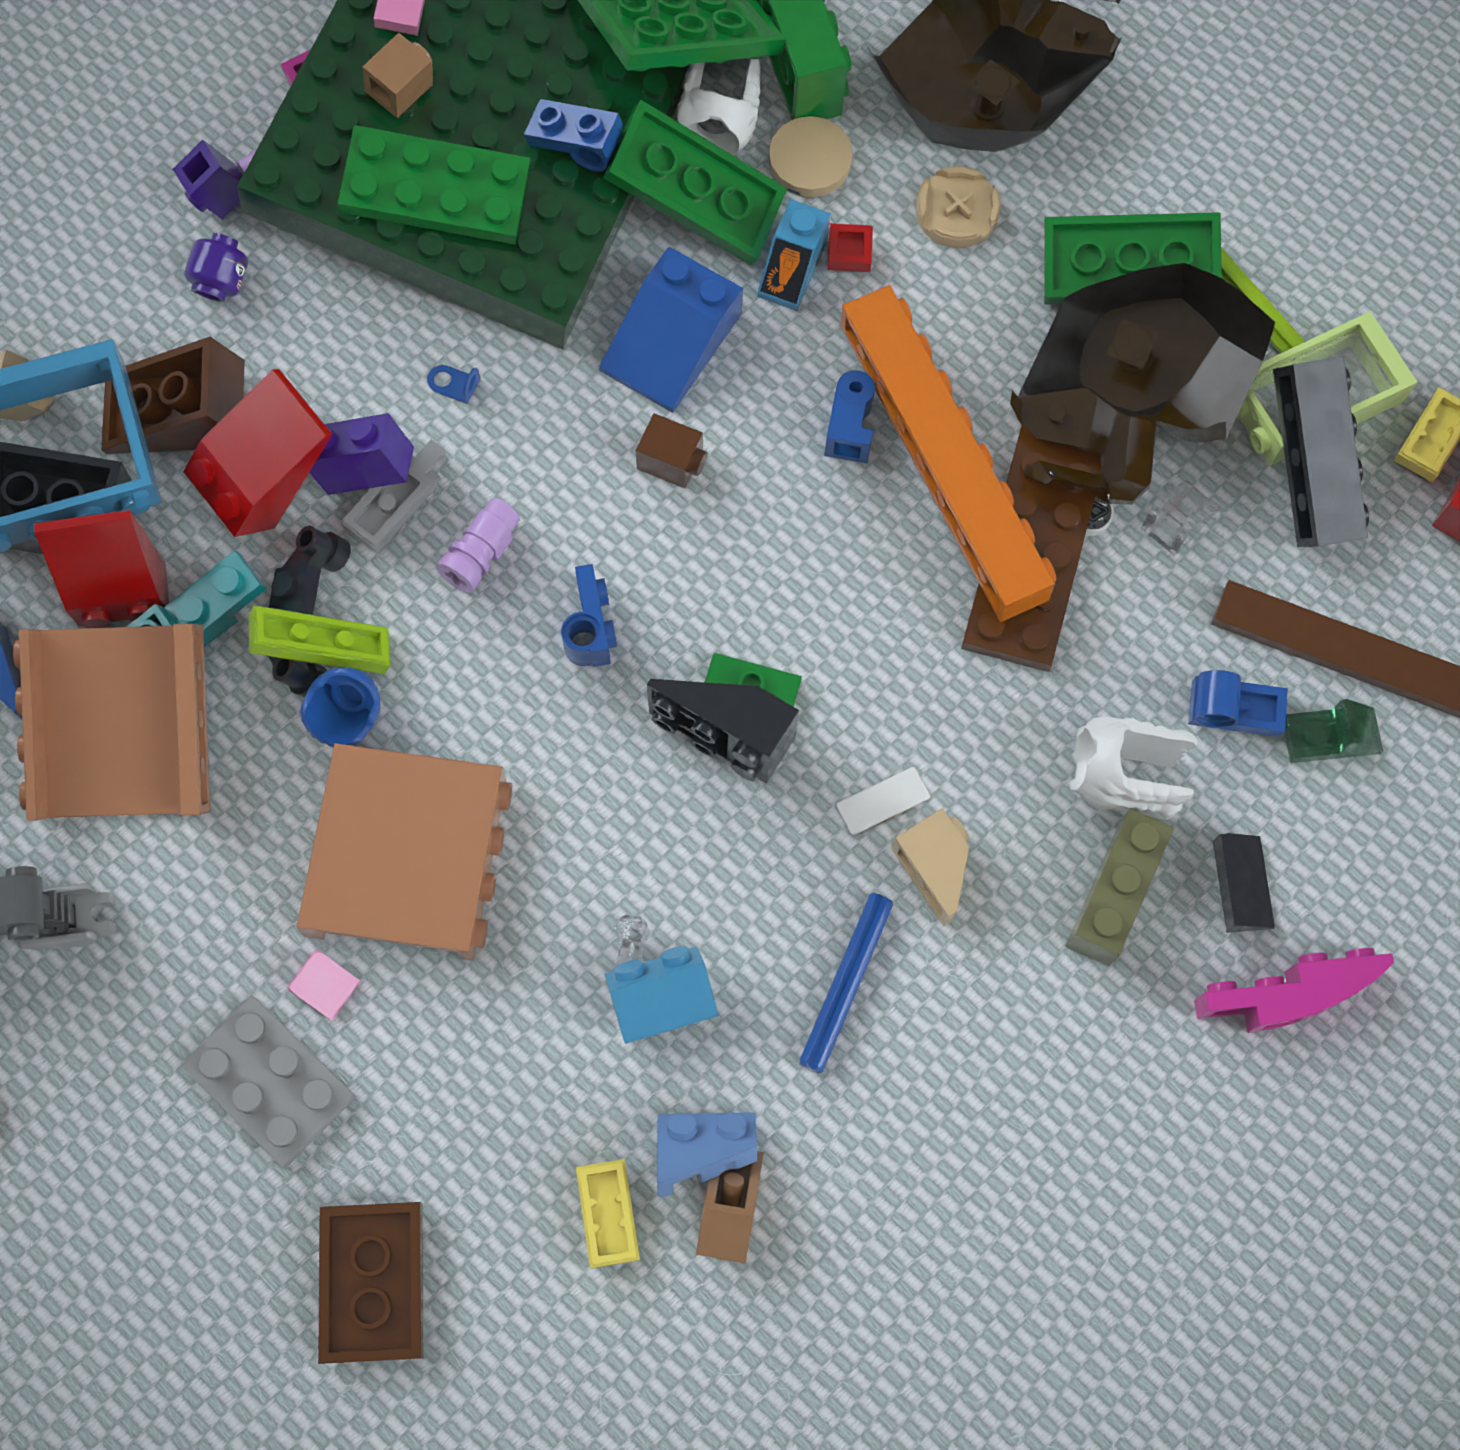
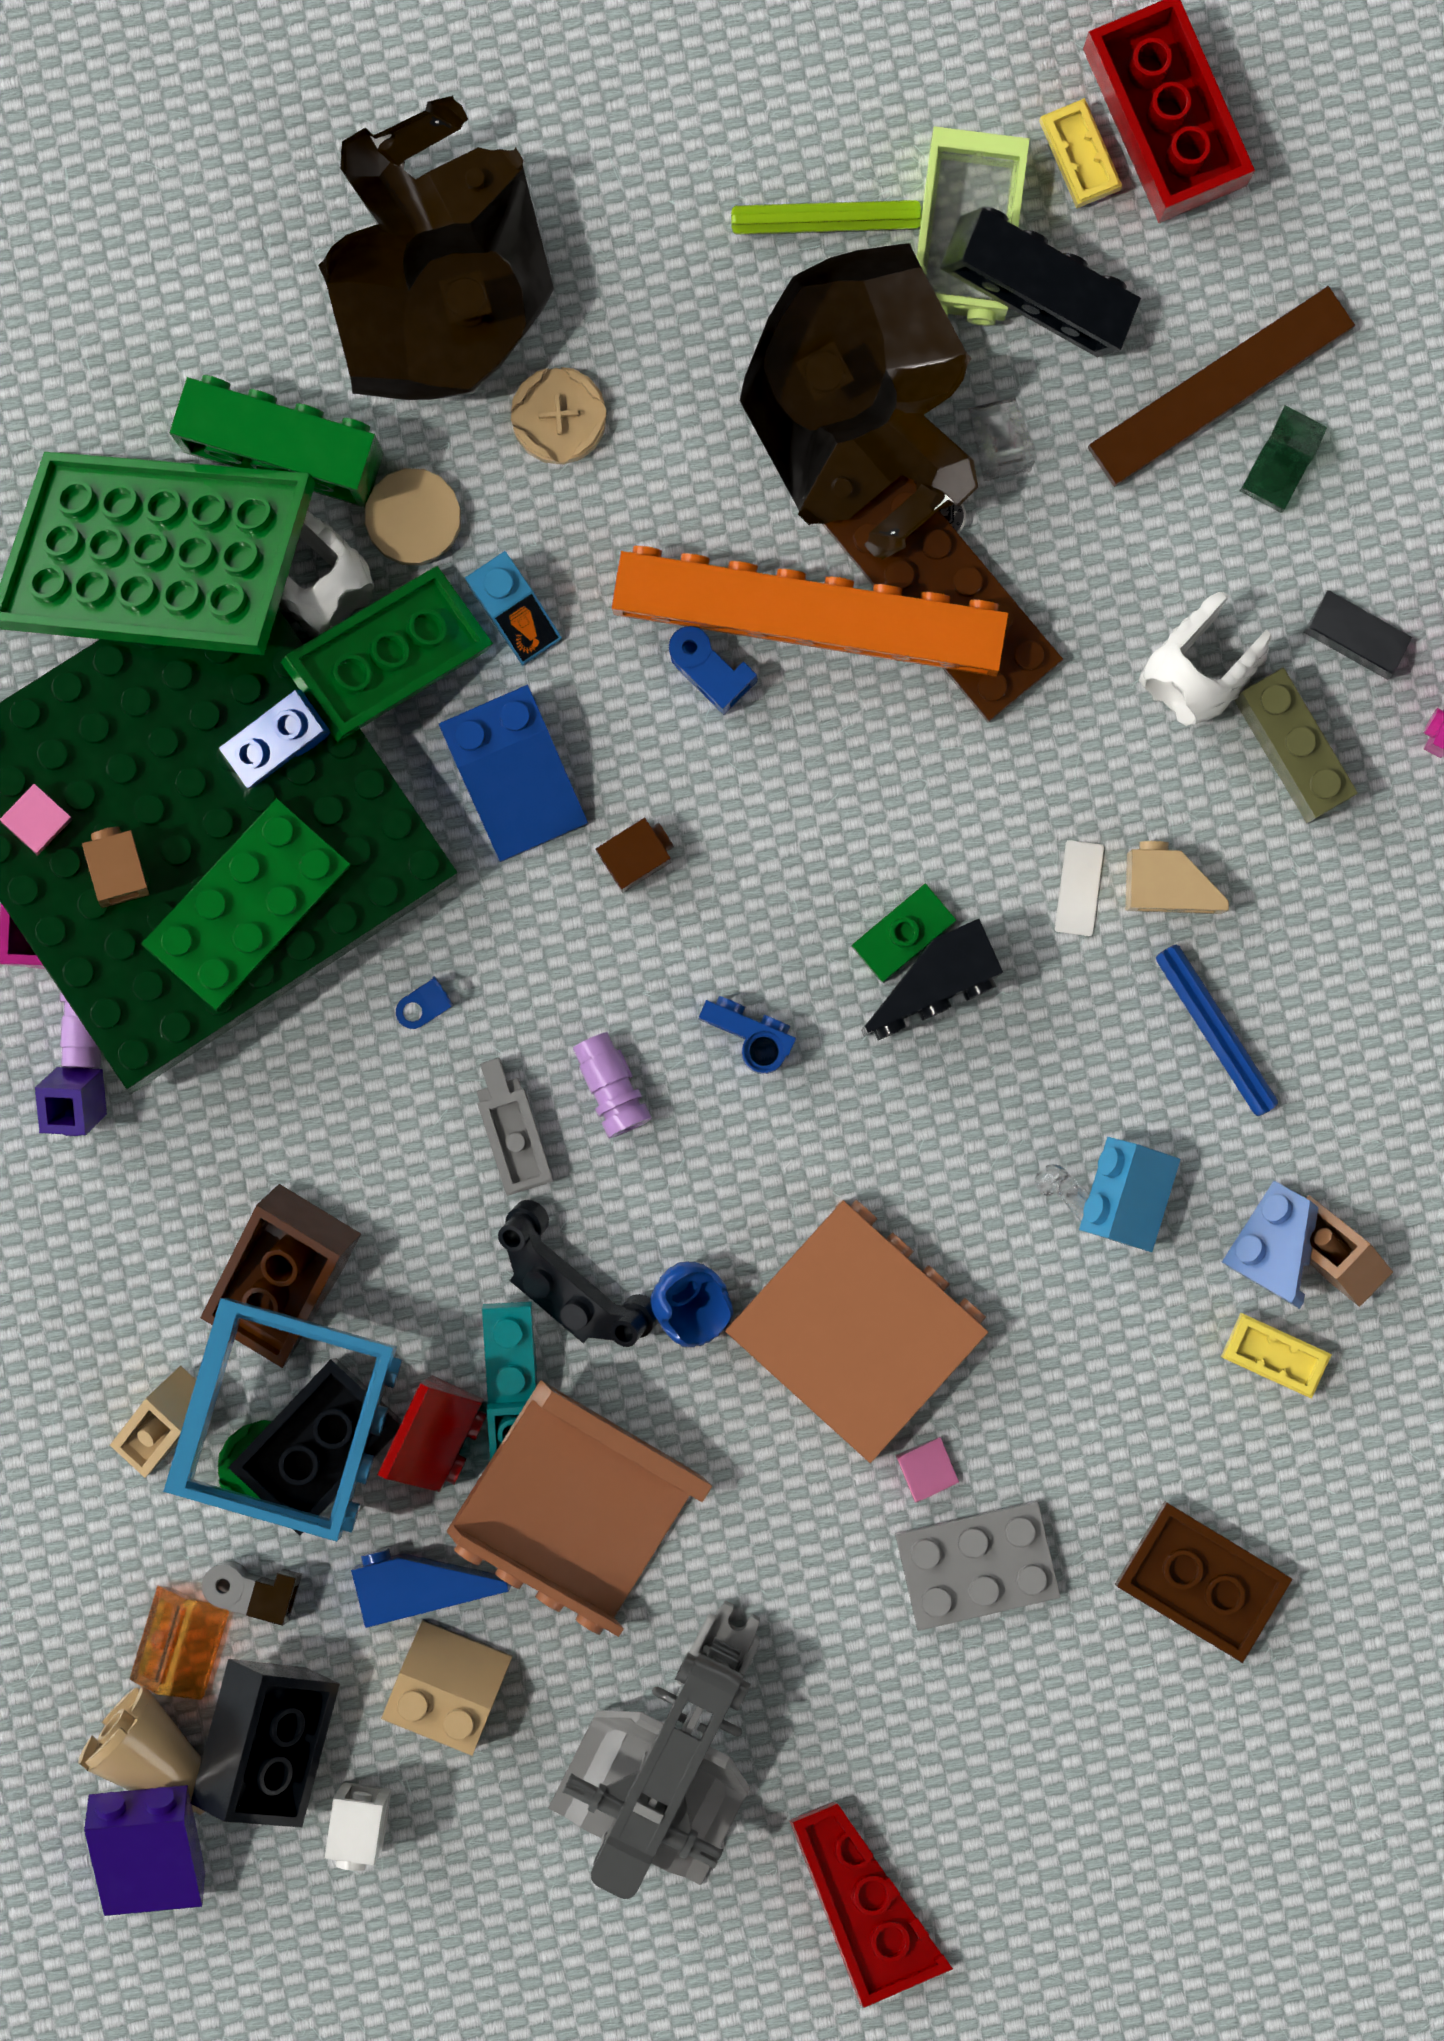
camera: 55 degrees left, 15 degrees up
(216, 267) = (164, 1152): dark purple head -> none
(258, 456) = (406, 1232): red slope -> none
(318, 639) = (617, 1285): lime tile -> none
(363, 455) = (458, 1141): dark purple brick -> none
(850, 247) = (537, 548): red plate -> none
(1102, 247) = (727, 299): green plate -> none
(1228, 704) = (1206, 524): blue plate -> none

